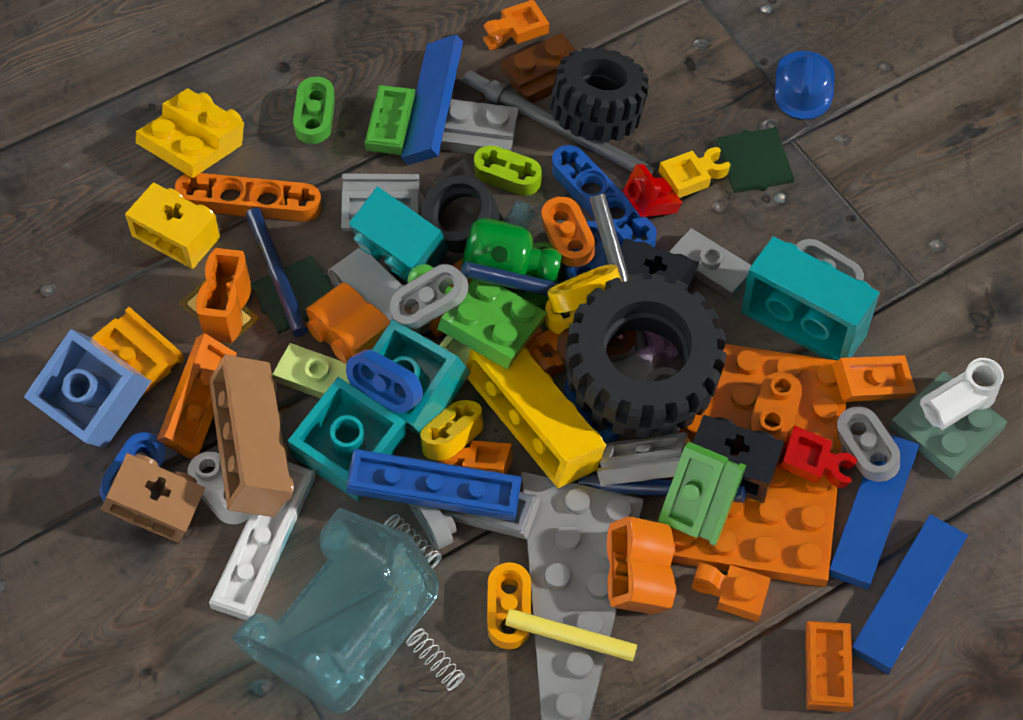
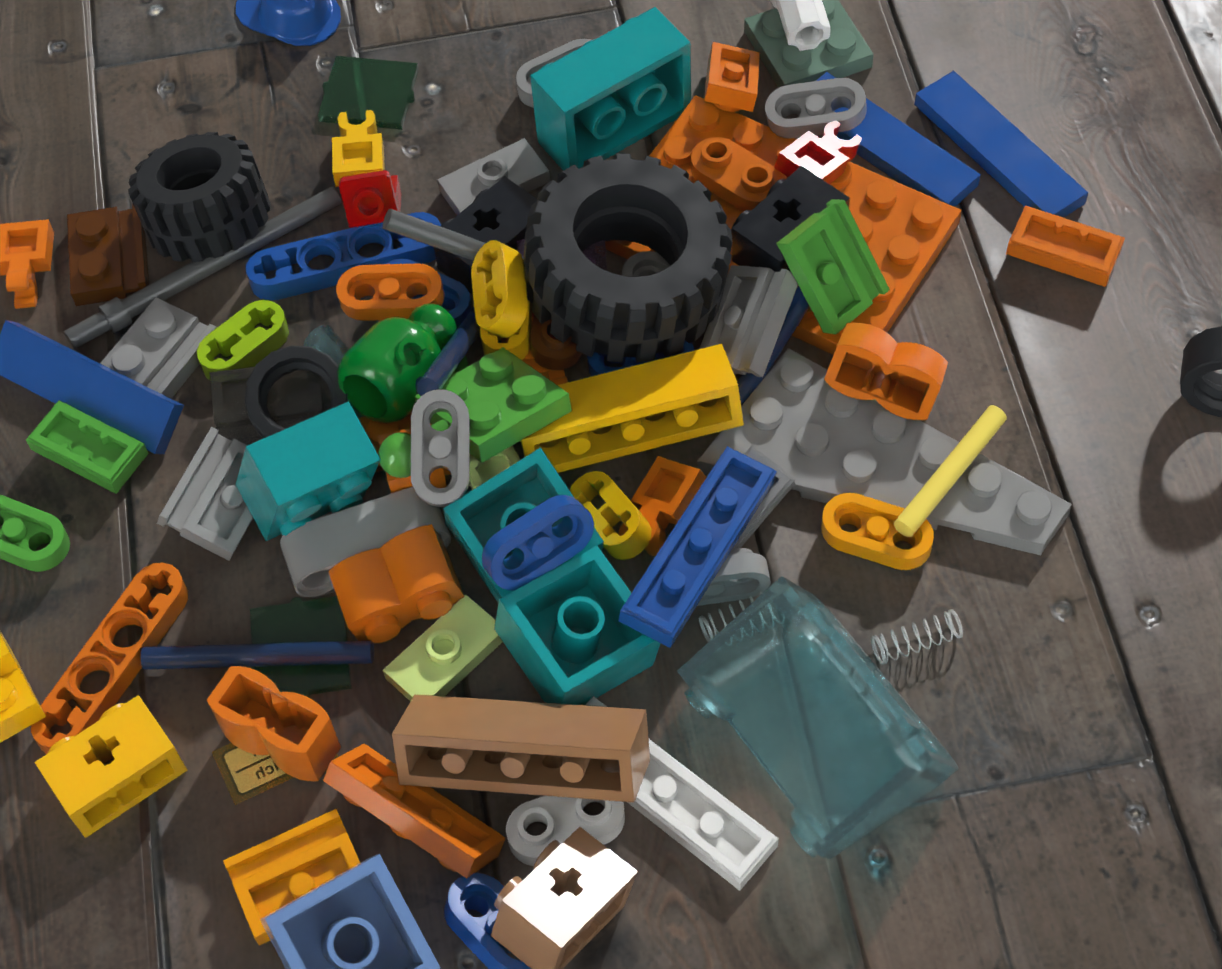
camera: 65 degrees left, 0 degrees up
(739, 591) = (939, 299): orange plate -> none

